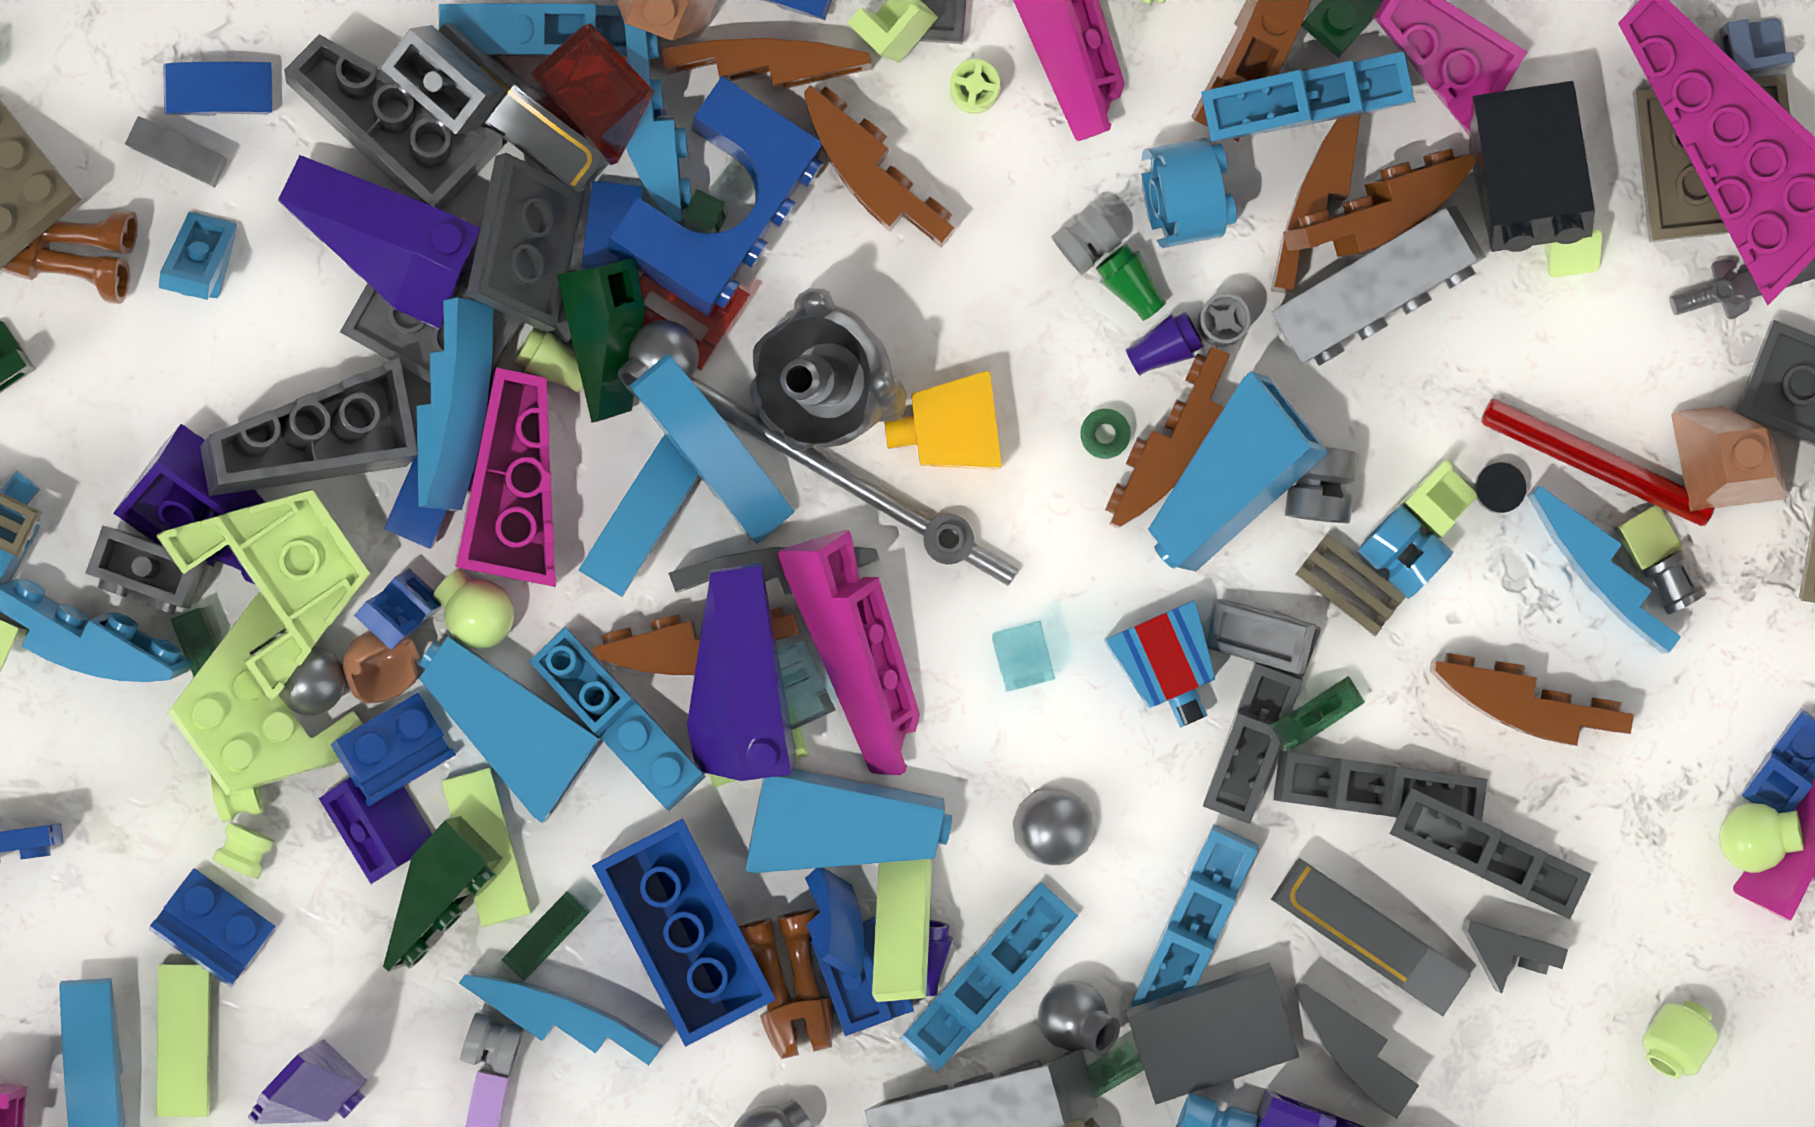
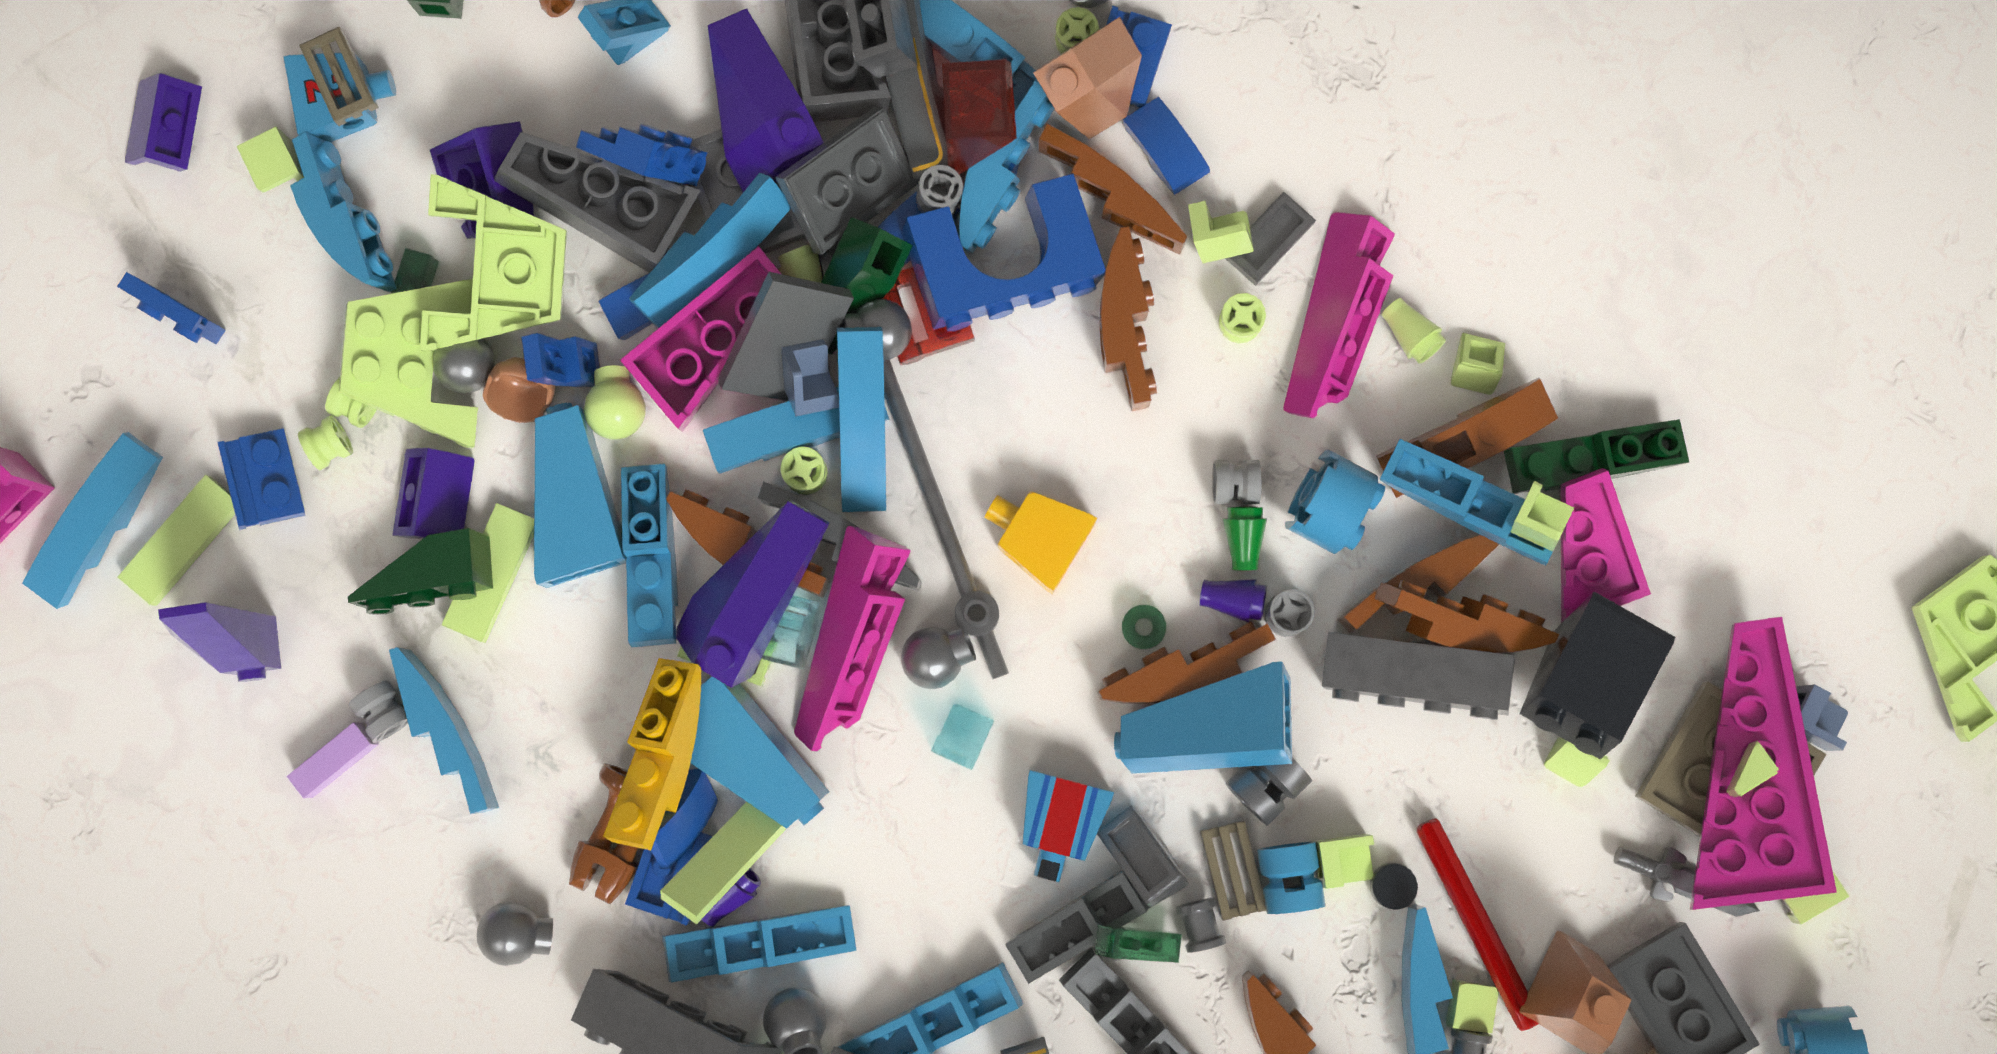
camera: 40 degrees right, 5 degrees down
(142, 566) = (406, 188): flat silver brick -> none
(328, 362) = (648, 152): none -> blue plate
(392, 749) = (480, 454): blue plate -> none
(546, 935) = (480, 666): clear green piece -> none
(588, 431) = (782, 315): none -> dark grey tile
(613, 198) = (939, 197): none -> light grey wheel
(635, 451) = (808, 378): none -> sand blue panel
(683, 932) = (568, 740): blue slope -> none
(687, 530) = (800, 463): none -> yellowish green wheel
(705, 213) = (987, 255): clear green piece -> none
(778, 878) = (663, 753): none -> yellow slope
(823, 376) = (979, 430): flat silver piece -> none
(943, 605) = (935, 656): none -> flat silver piece
(1053, 827) = (889, 873): flat silver hair -> none
(1359, 655) = (1200, 925): none -> flat silver bush
(1378, 66) = (1541, 518): none -> yellowish green panel
(1727, 145) = (1752, 770): none -> yellowish green slope

